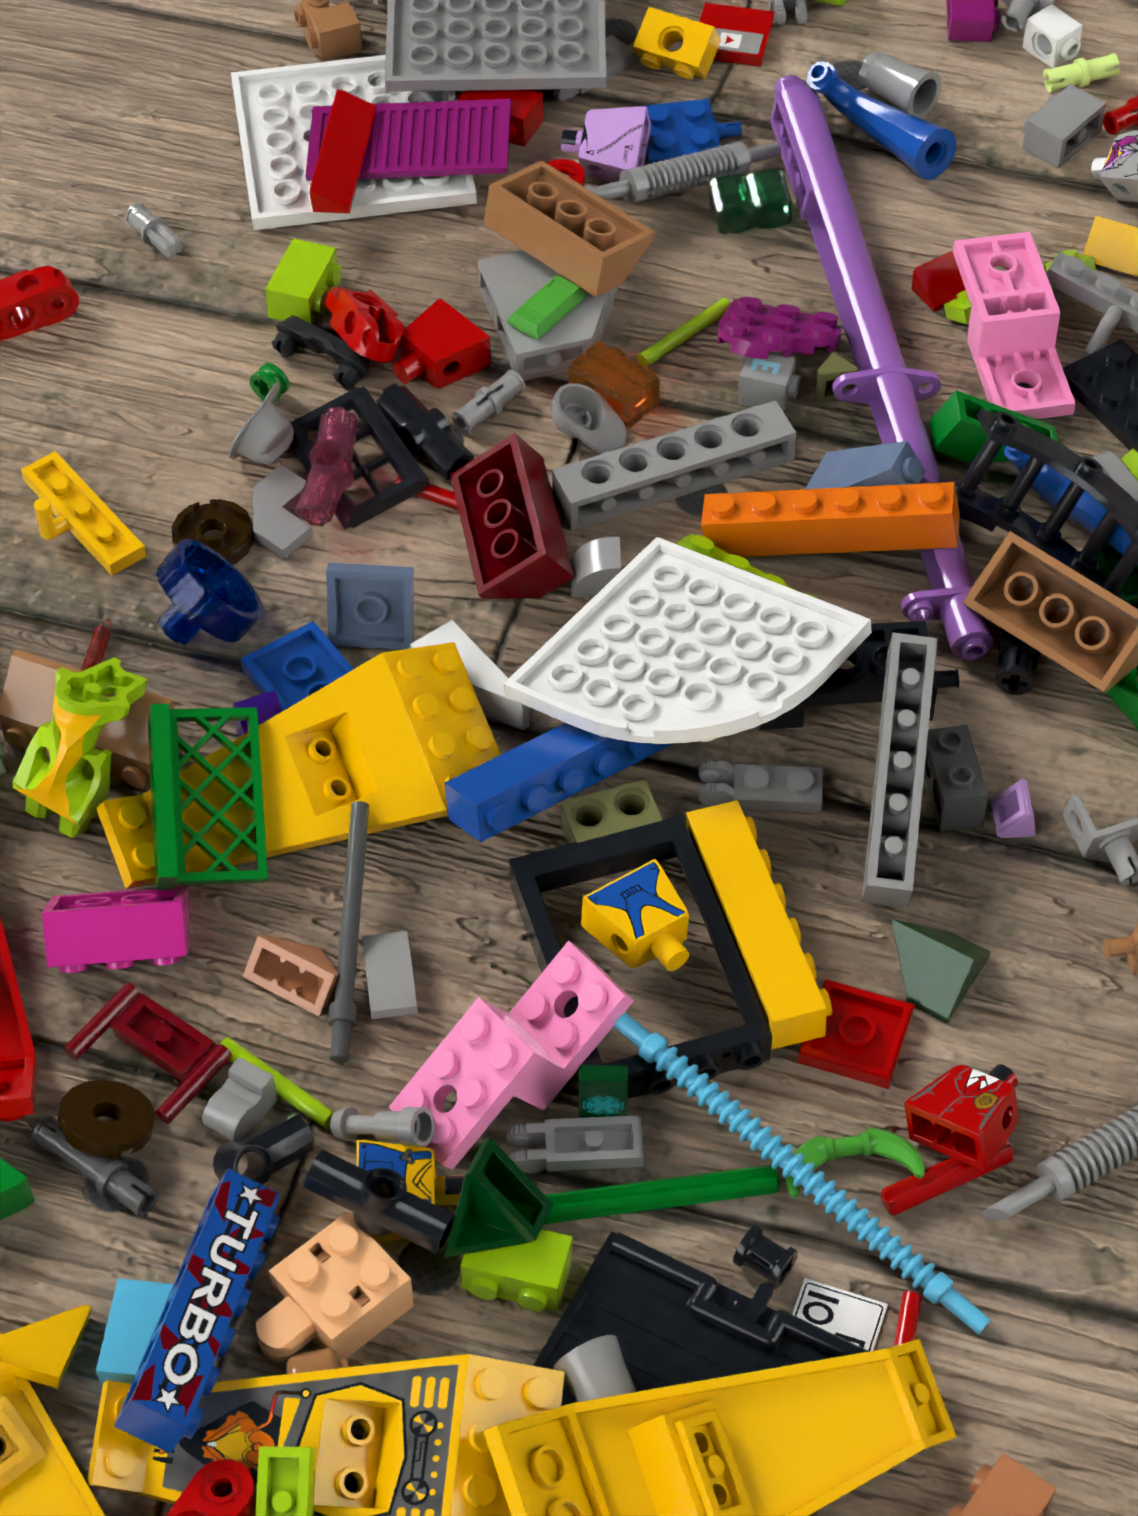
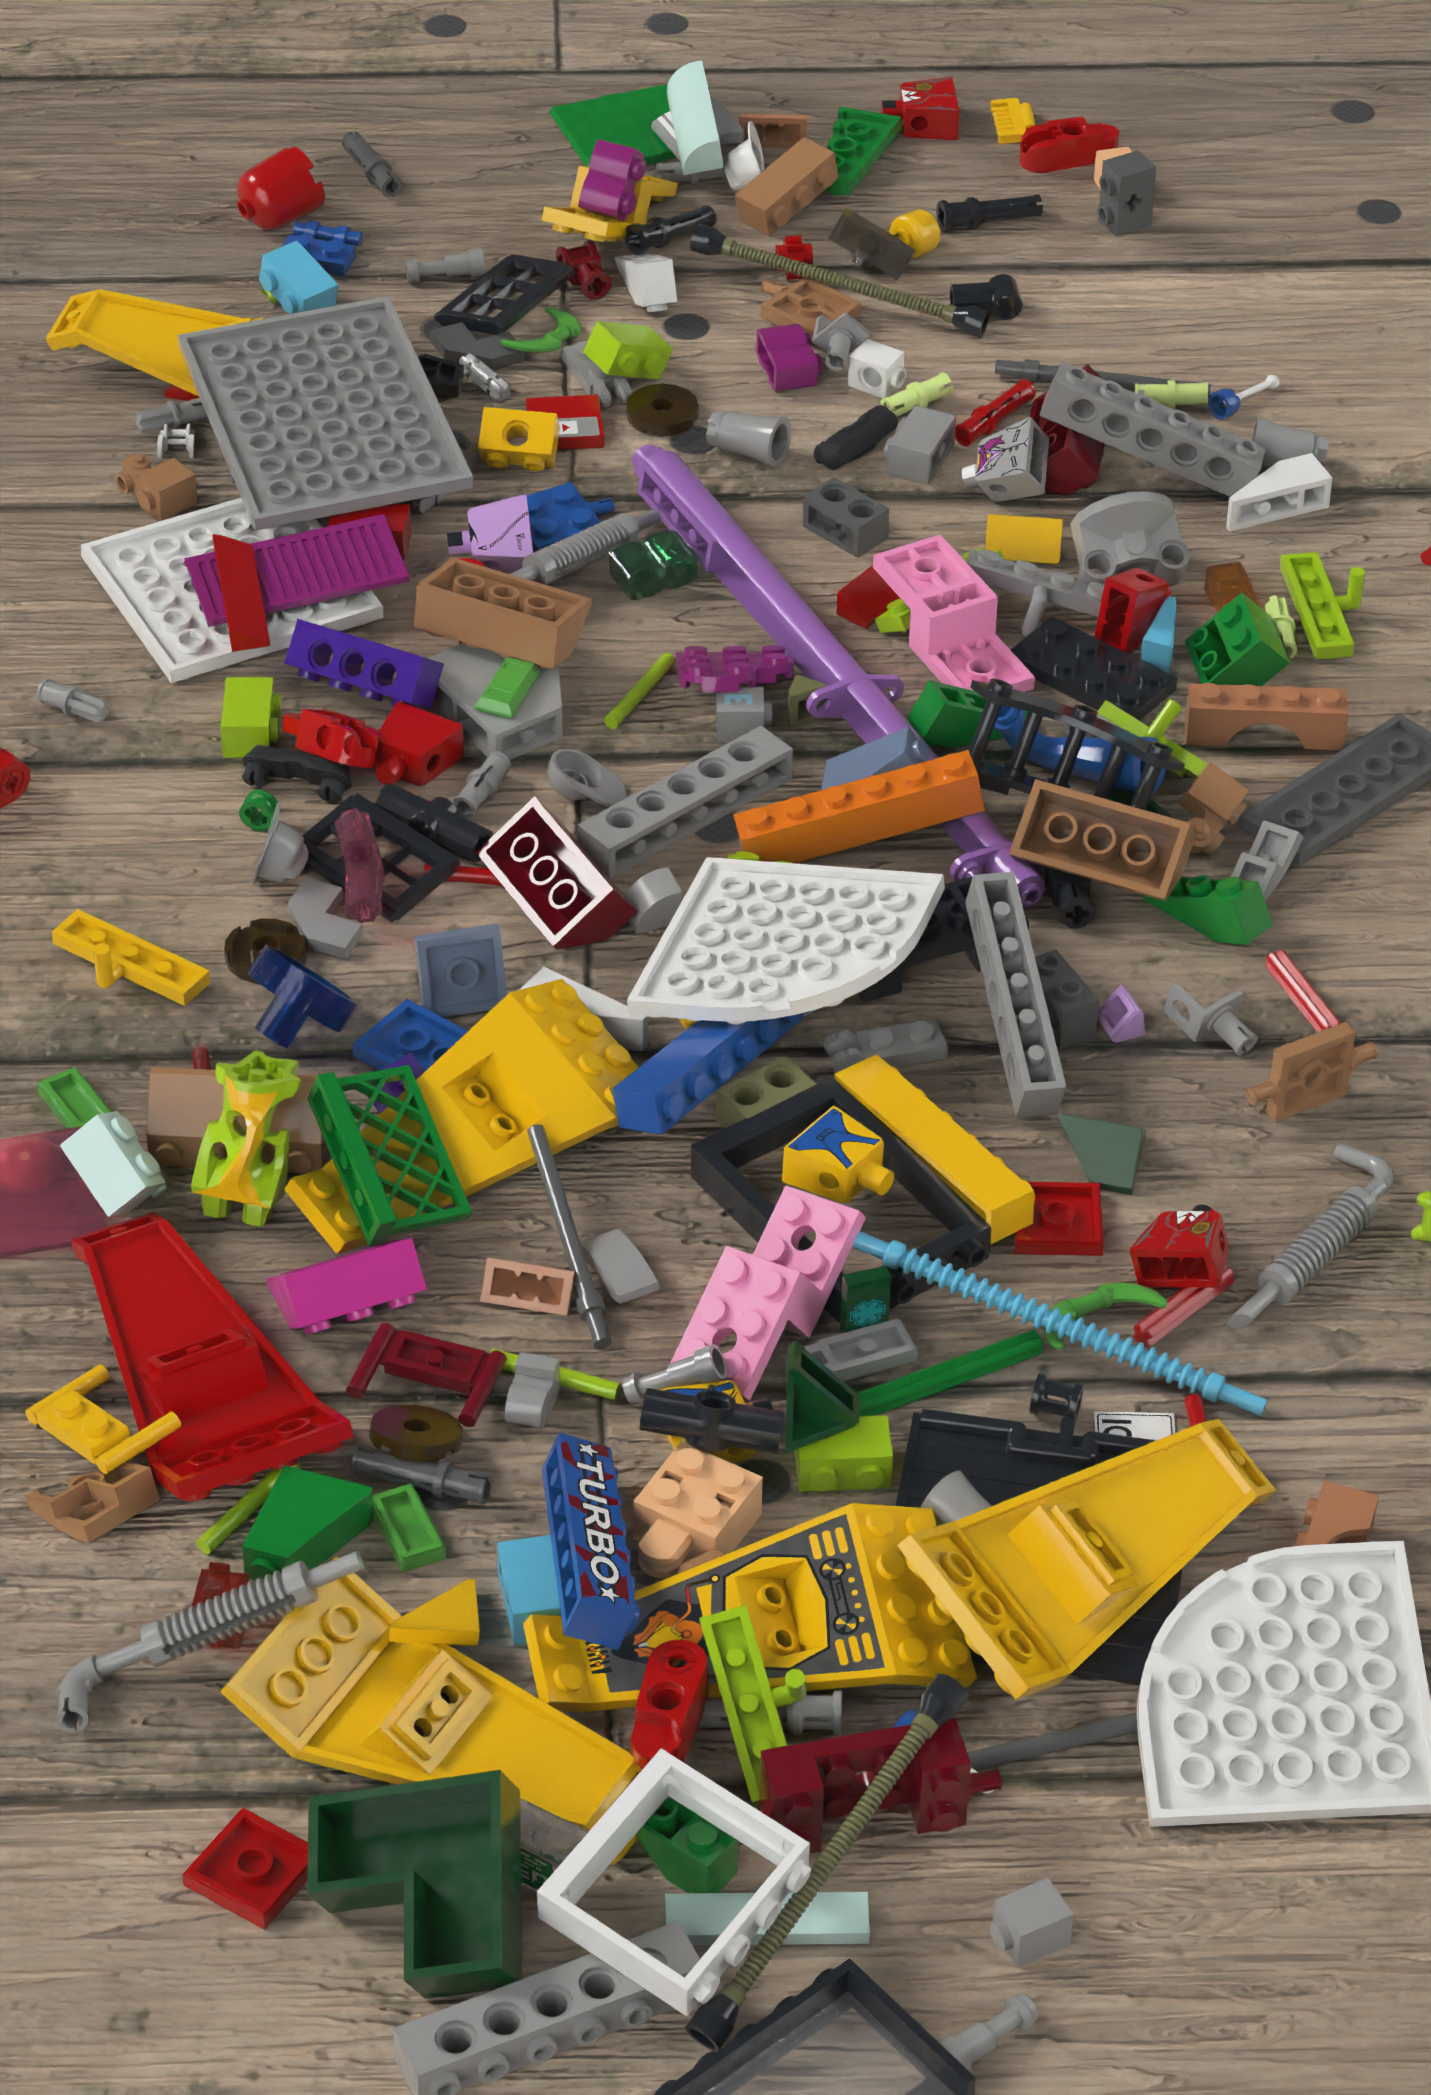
camera: 20 degrees left, 10 degrees down
(57, 1223) = (407, 1528): none -> bright green tile
(267, 1149) = (579, 1418): black piece -> none
(425, 252) = (311, 652): none -> dark purple brick
(622, 383) = (609, 742): clear orange brick -> none
(819, 26) = (645, 405): none -> dark brown tile
(914, 141) = (768, 478): blue animal -> none
(958, 188) = (845, 517): none -> dark grey brick
(1003, 106) = (856, 438): none -> black piece

